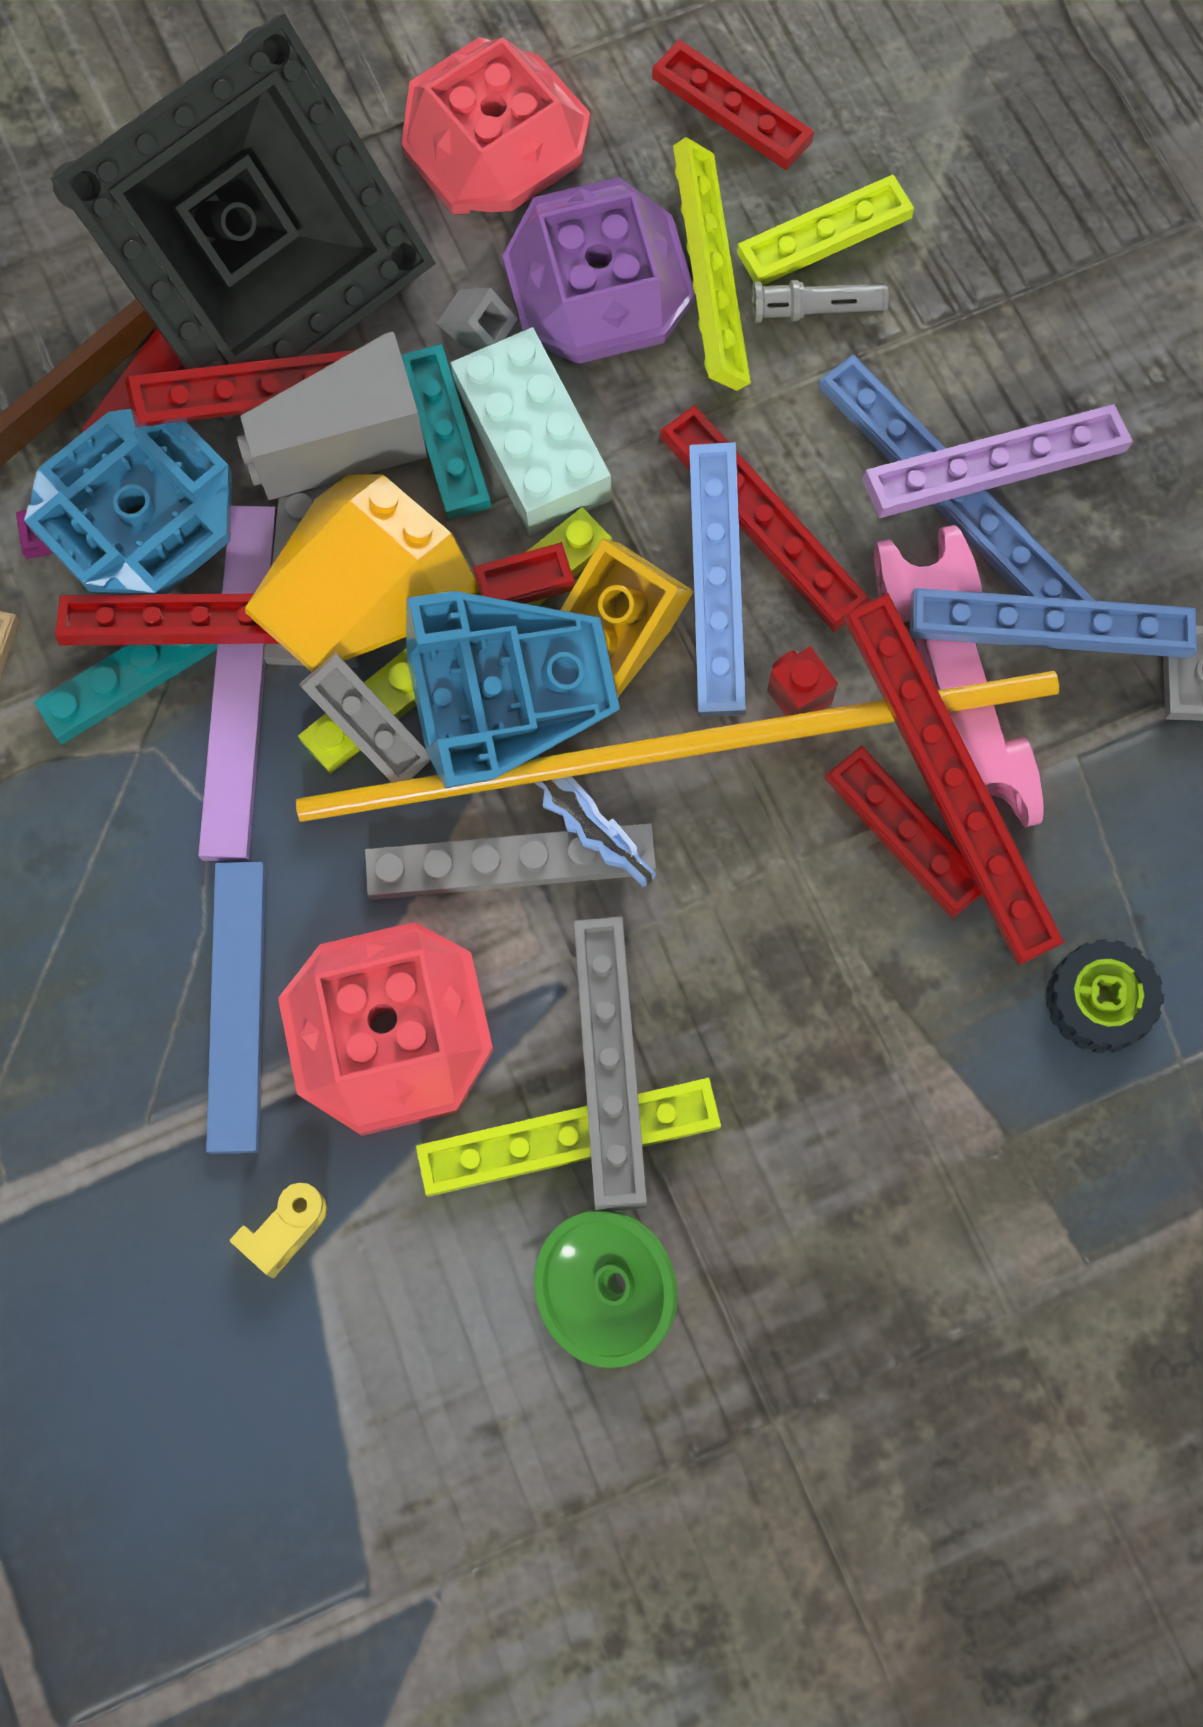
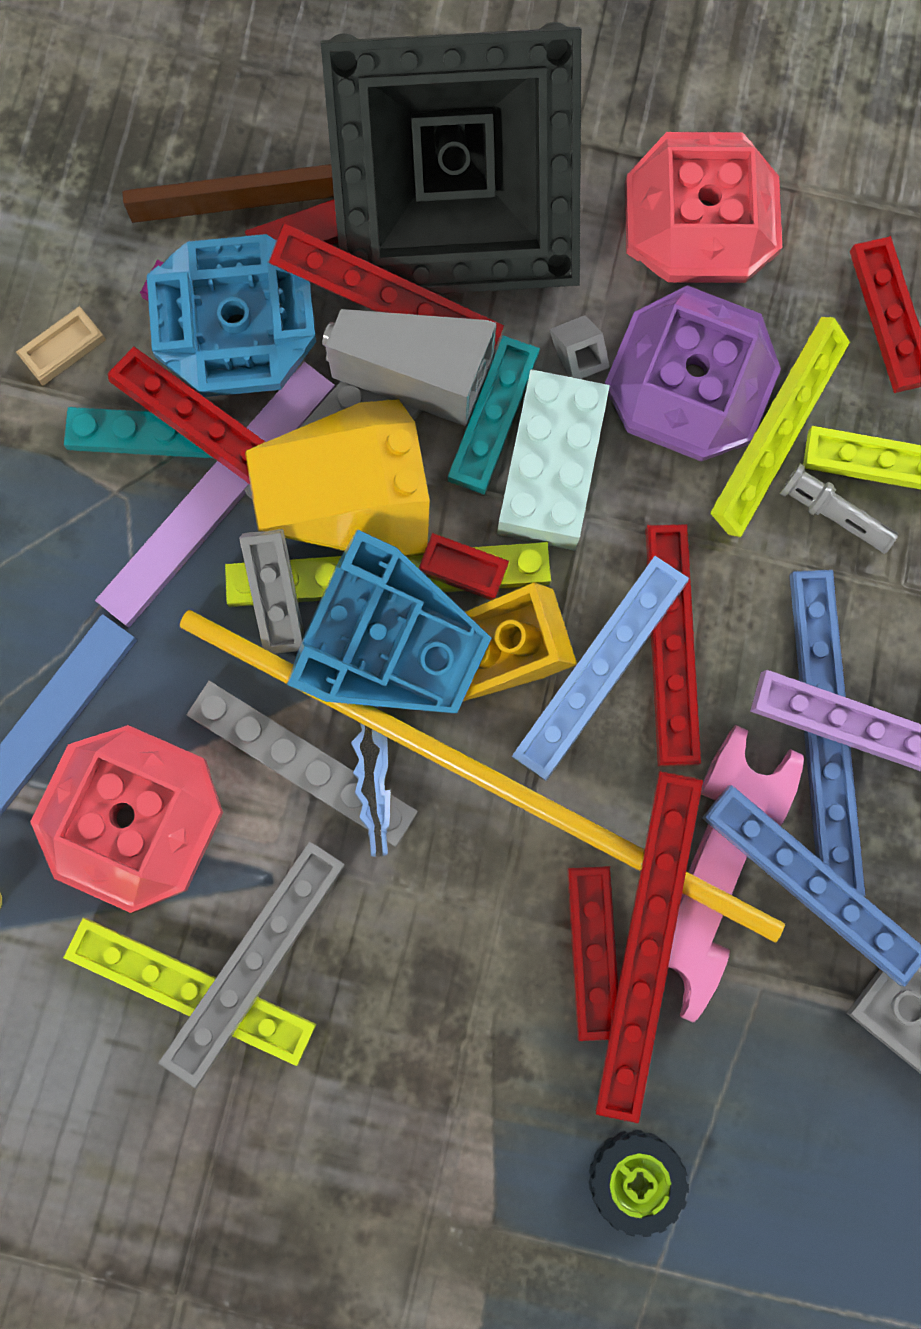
camera: 30 degrees right, 5 degrees up
(581, 1295) = (128, 1121): bright green dish -> none
(801, 683) = (599, 790): red brick -> none

